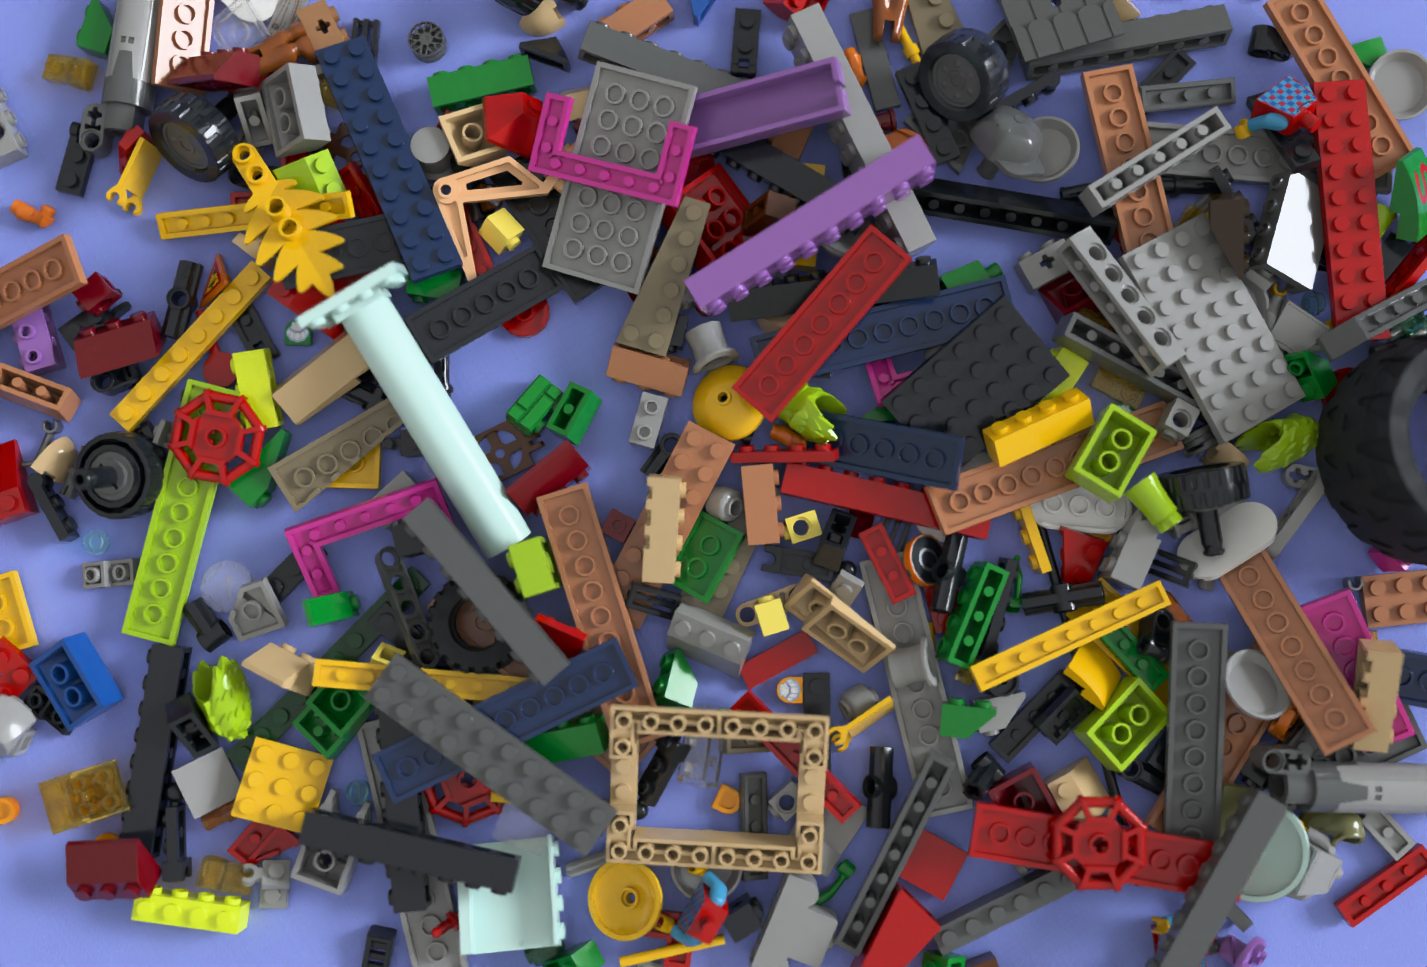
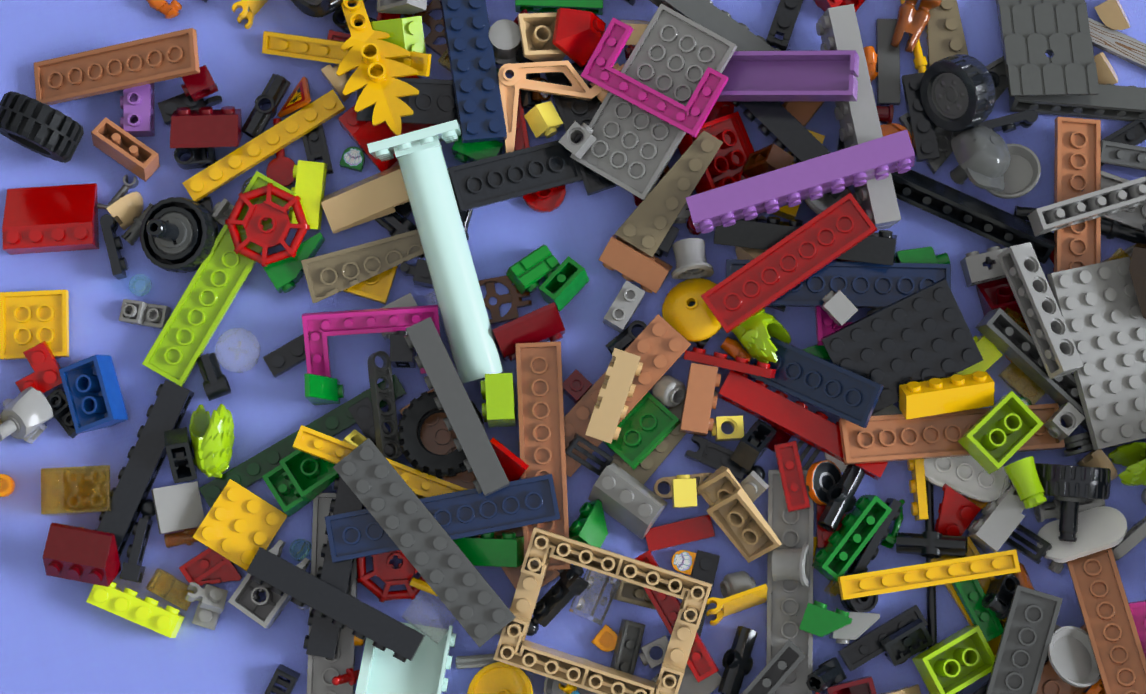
camera: 10 degrees right, 5 degrees down
(256, 610) = (257, 376): light grey plate -> none
(283, 667) = (270, 428): tan slope -> none
(362, 194) = (439, 64): red tile -> none
(534, 245) = (581, 148): none -> light grey brick
(891, 359) = (838, 307): none -> light grey brick
(1094, 672) = (942, 613): yellow slope -> none

